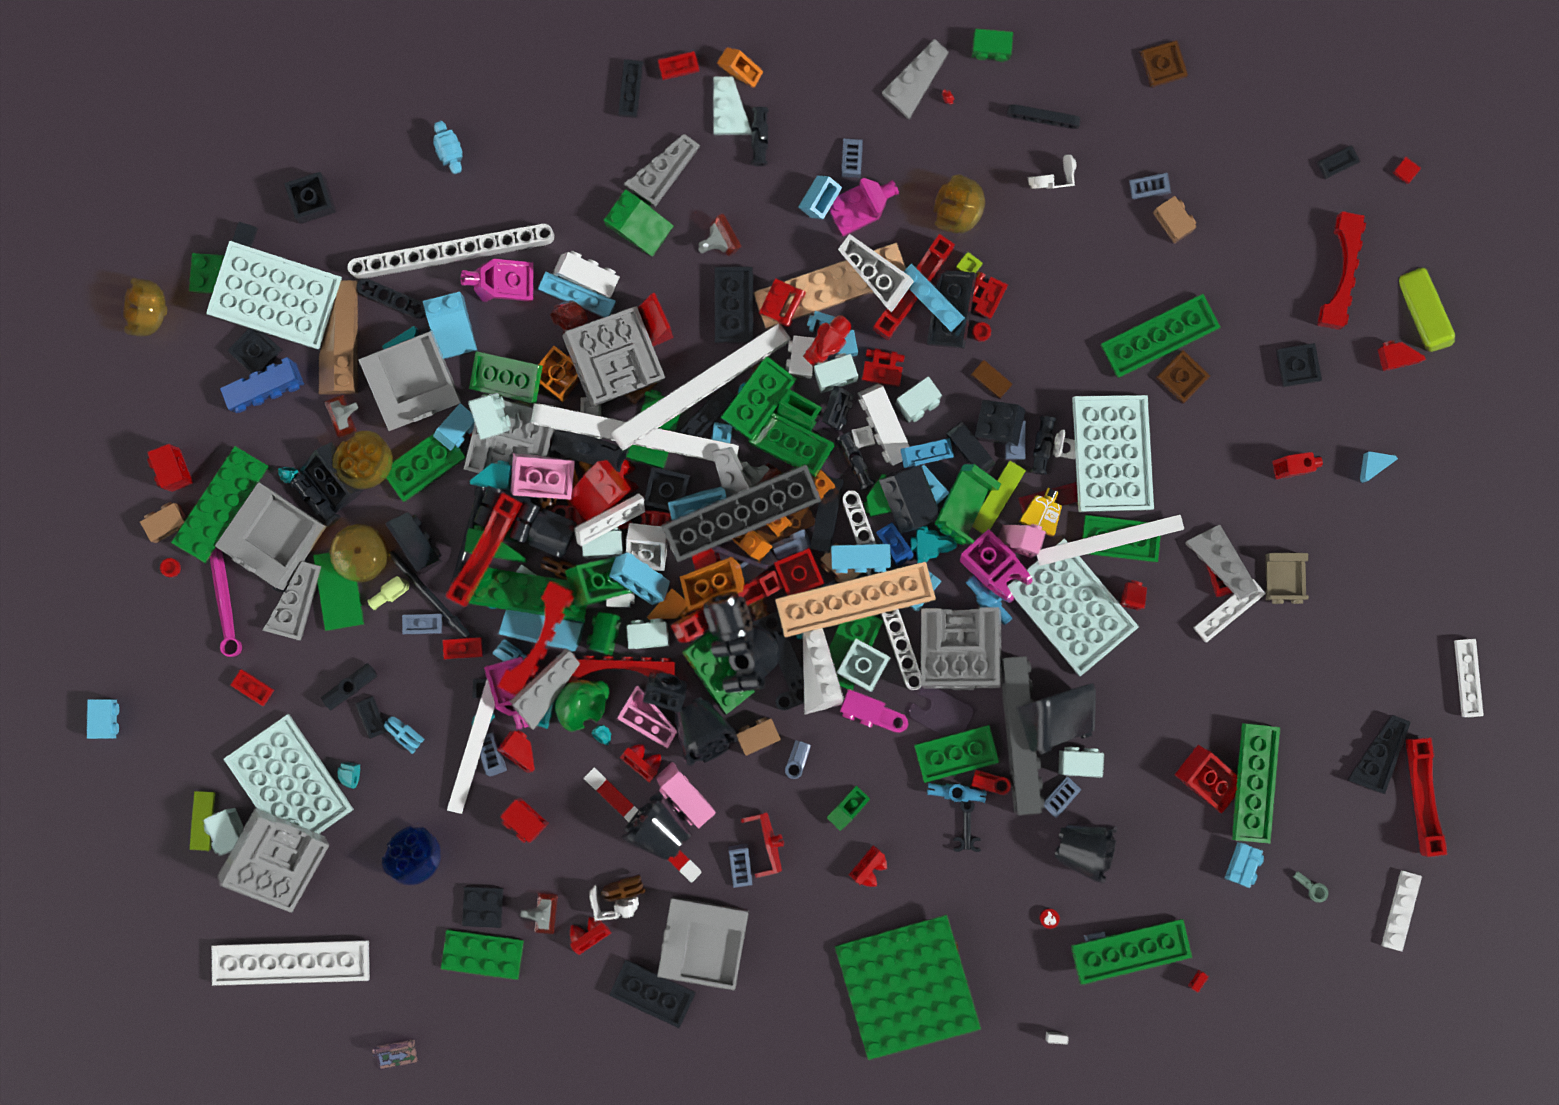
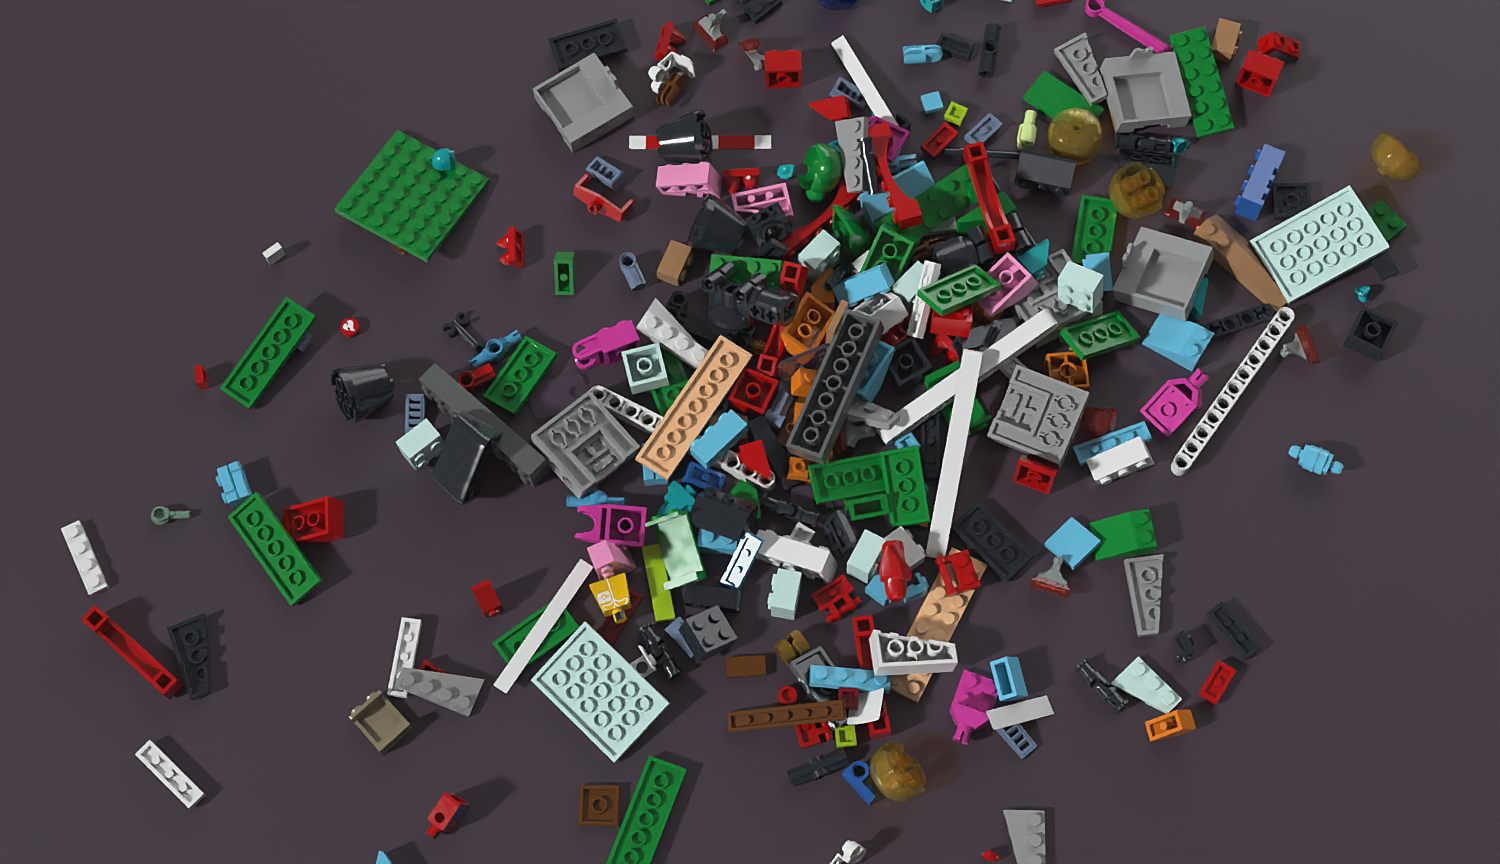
camera: 140 degrees right, 15 degrees down
(129, 480) = (1278, 42): none -> red bracket
(170, 567) = (1189, 19): red tile -> none
(279, 235) = (1364, 293): none -> teal piece
(367, 236) = (1302, 346): none -> piece
(428, 658) = (955, 113): none -> lime plate
(435, 687) = (932, 102): none -> medium azure tile
(530, 864) = (750, 47): none -> piece
(542, 669) = (868, 155): none -> black pin
(581, 496) = (958, 290): none -> green plate
(640, 610) = (841, 270): none -> black pin
(673, 110) = (1185, 644): none -> black bracket
(678, 251) = (1072, 543): none -> medium azure tile
(683, 672) = (771, 250): none -> black tile
(693, 561) = (836, 320): none -> medium nougat tile
(835, 167) = (1019, 712): none -> white sticker
(848, 516) = (755, 459): none -> red slope
(857, 993) = (444, 159): none -> teal piece
(939, 267) = (868, 707): none -> white sticker
(946, 284) = (850, 696): none -> dark red plate
(955, 359) = (792, 646): none -> pearl gold wheel
(991, 225) = (857, 783): none -> blue plate
(999, 313) = (786, 716): none -> reddish brown tile
(1008, 262) = (817, 767): none -> black piece
(1073, 611) = (525, 551): light aqua plate -> none

